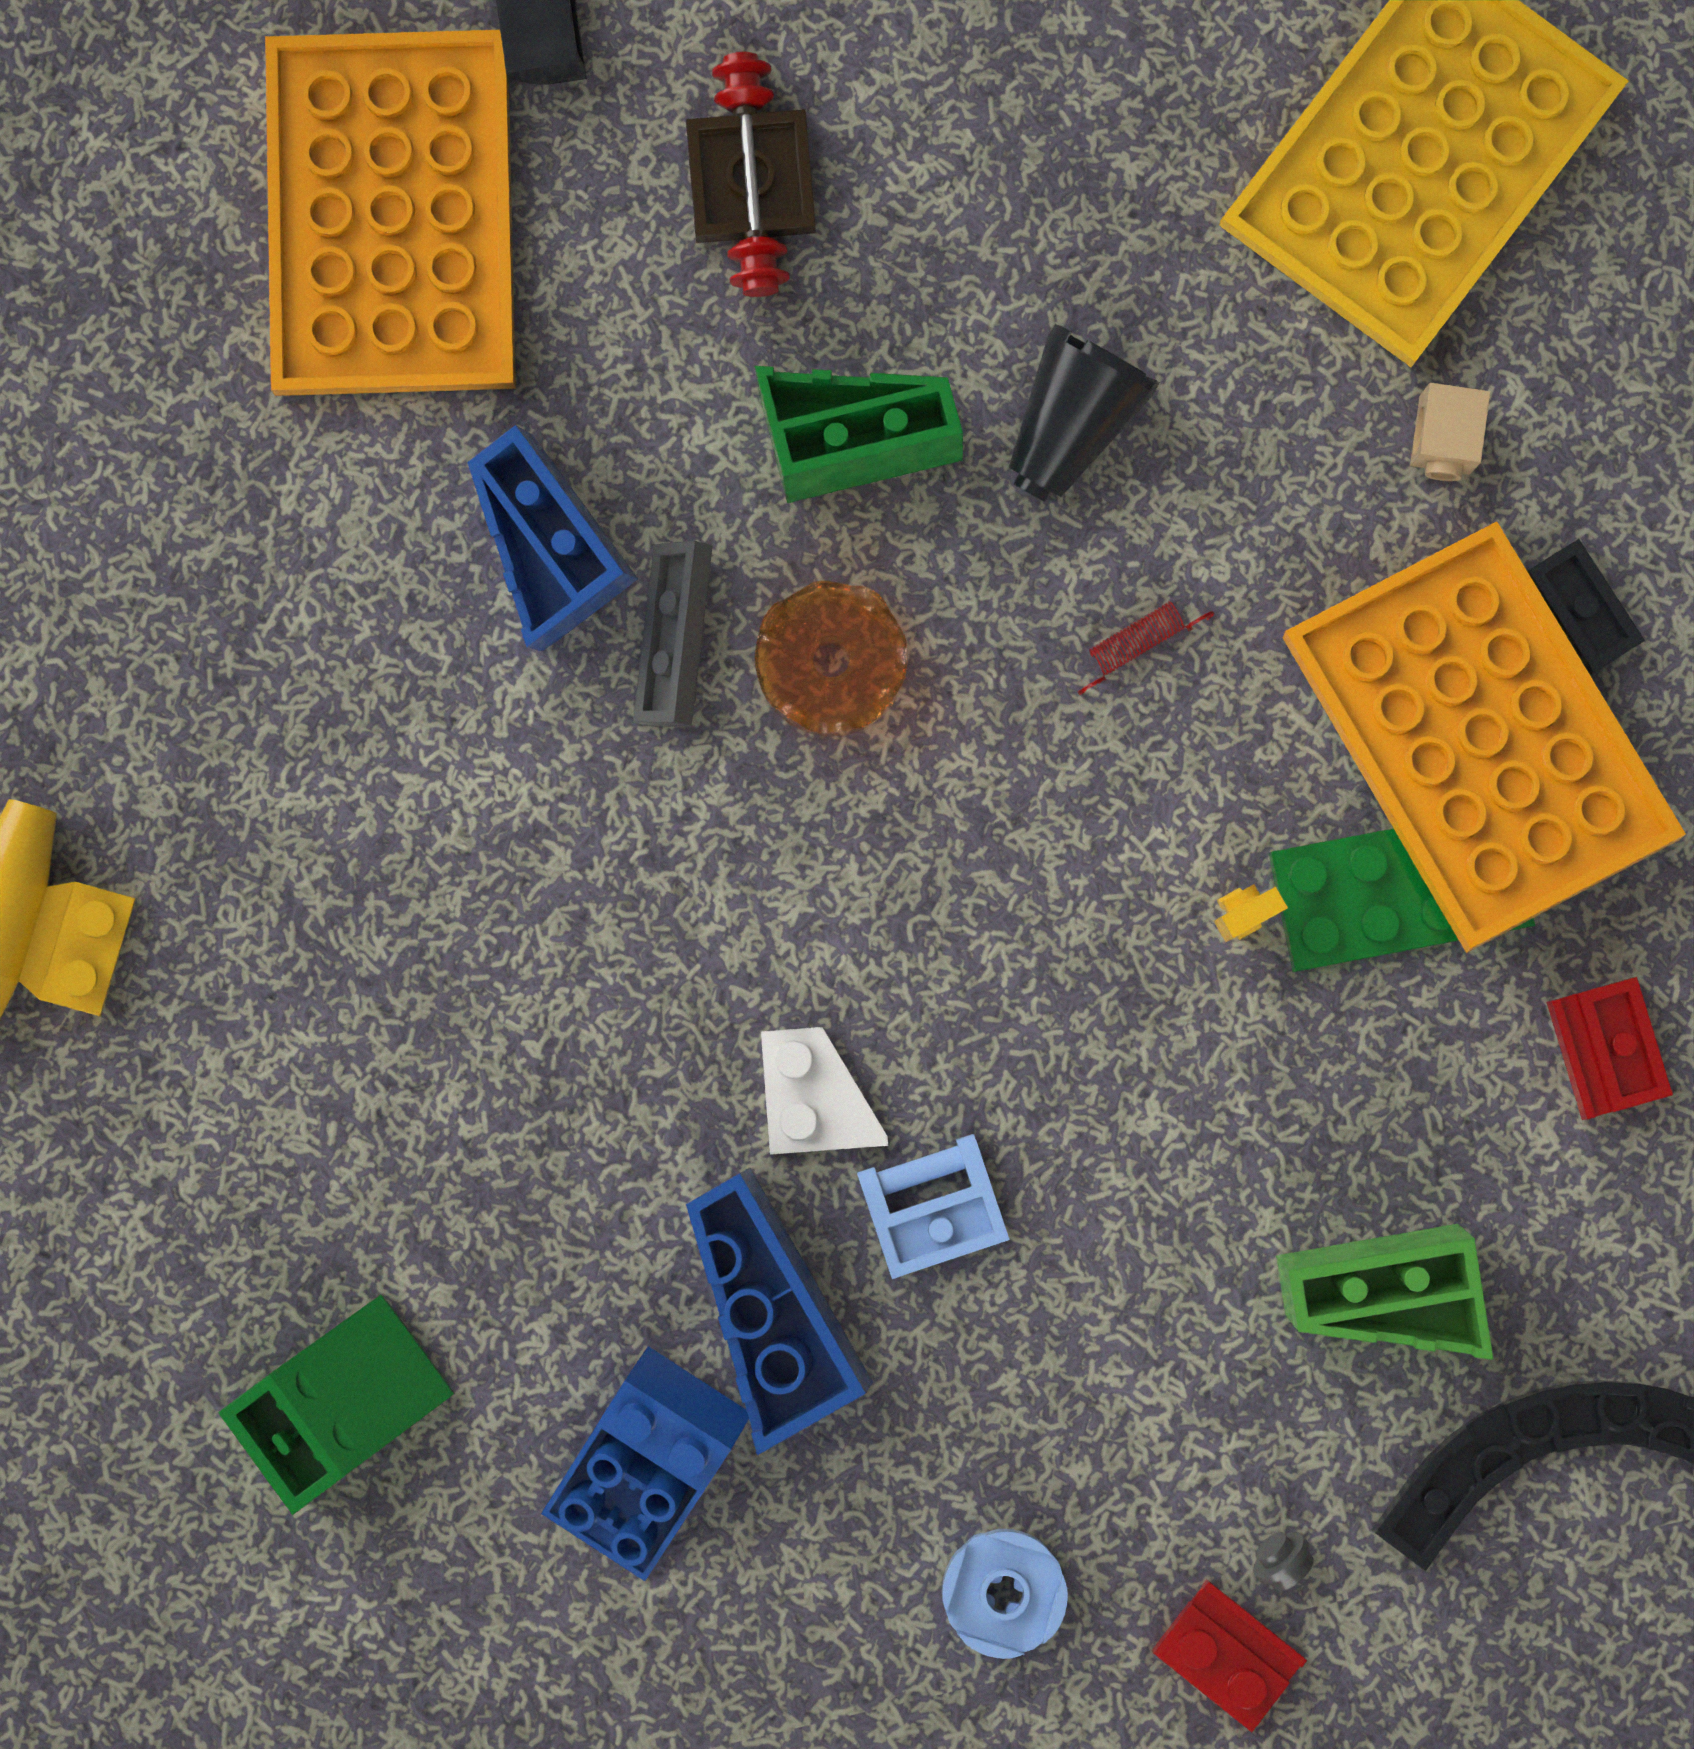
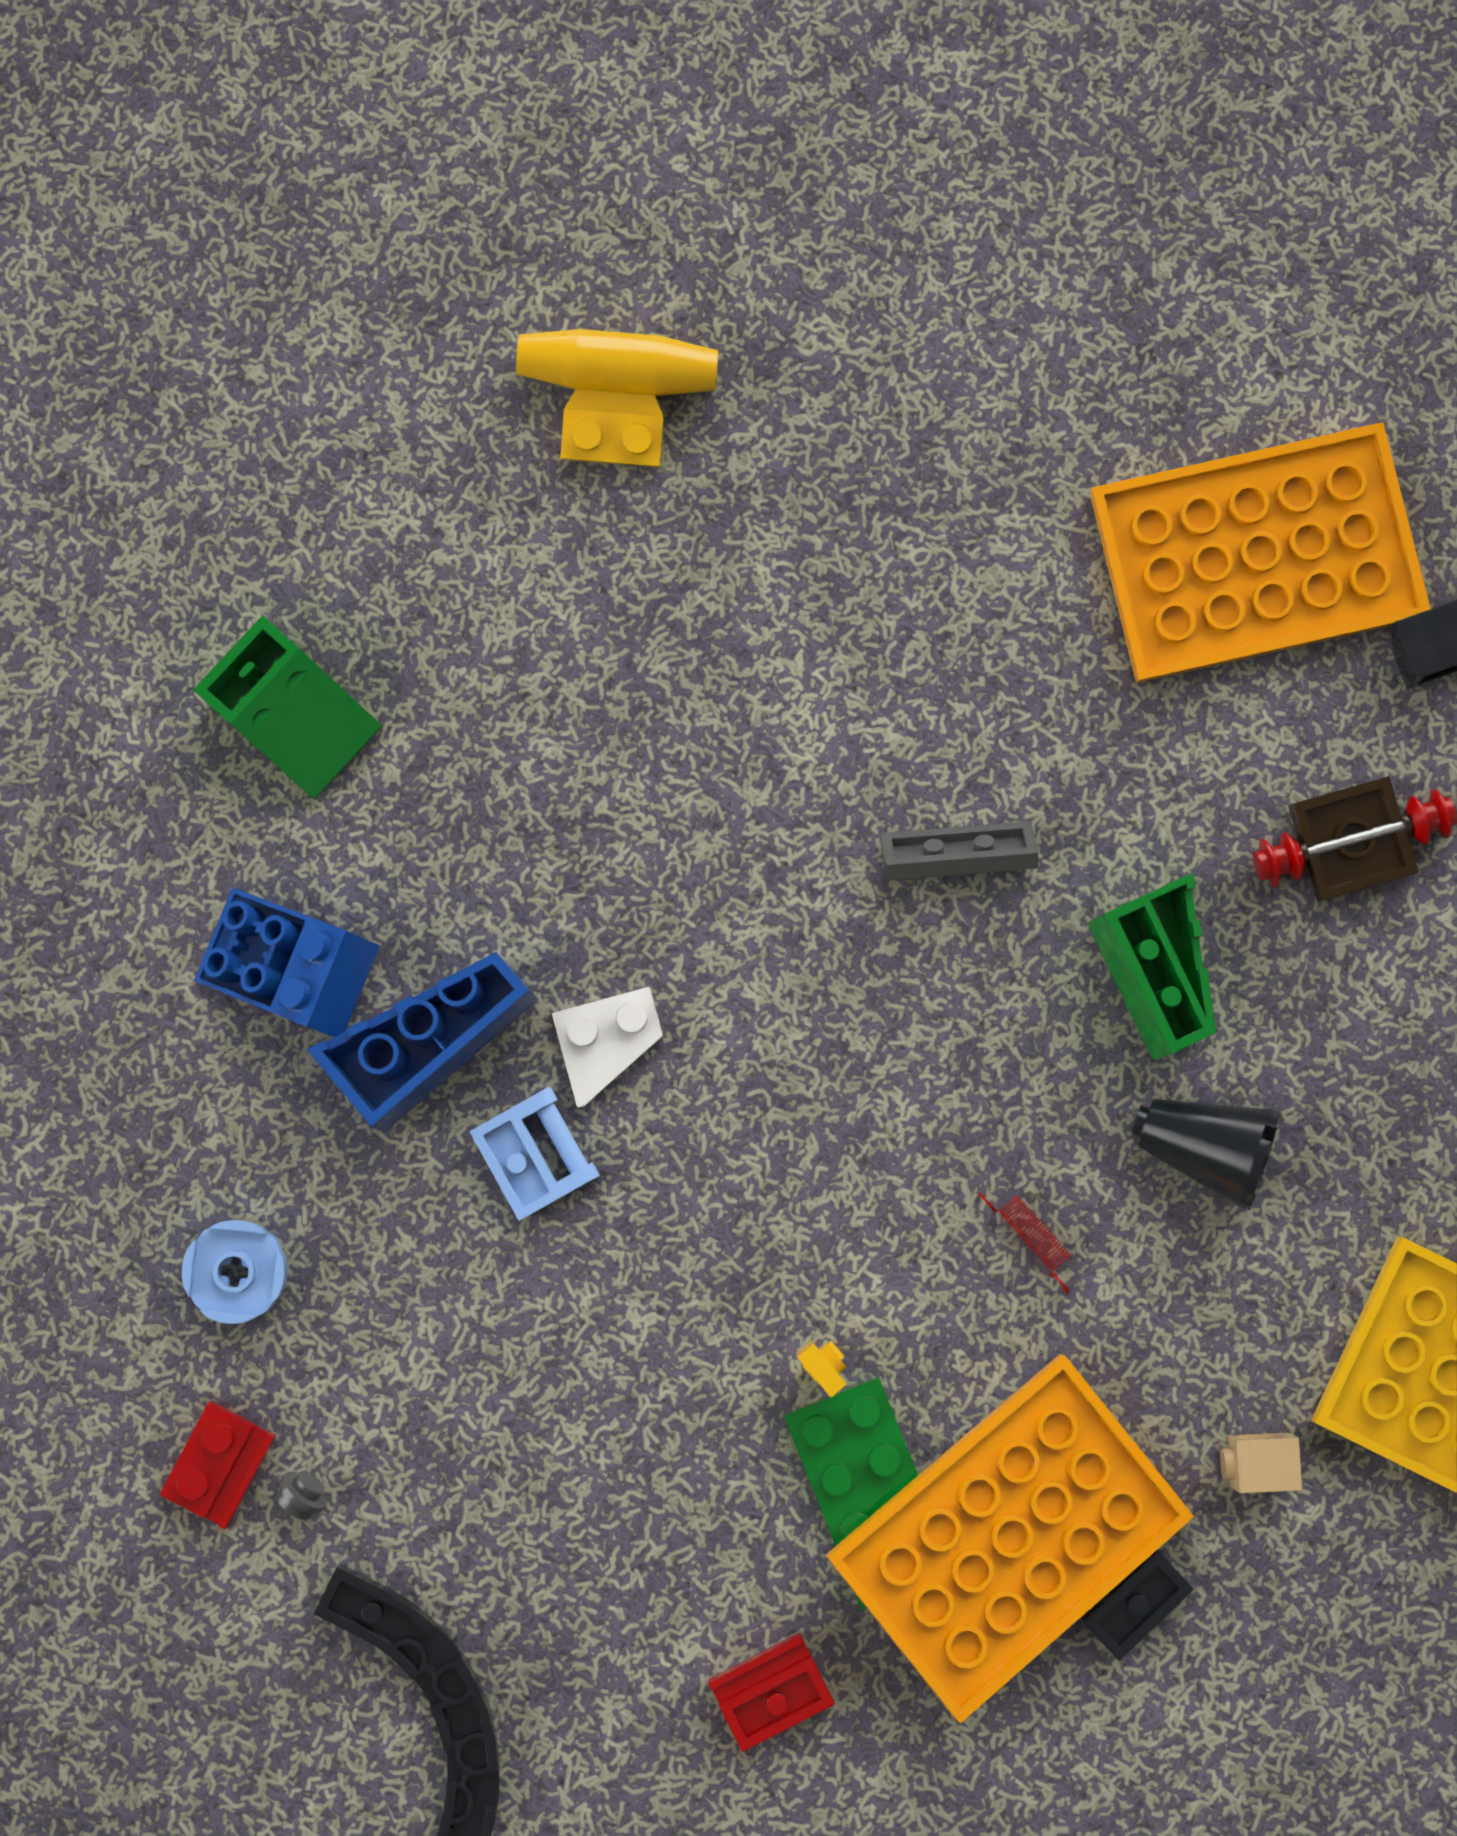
camera: 80 degrees right, 0 degrees up
(547, 539) = (1014, 734): blue wedge -> none
(838, 616) = (1000, 977): clear orange plate -> none
(1391, 1289) = (536, 1543): bright green wedge -> none

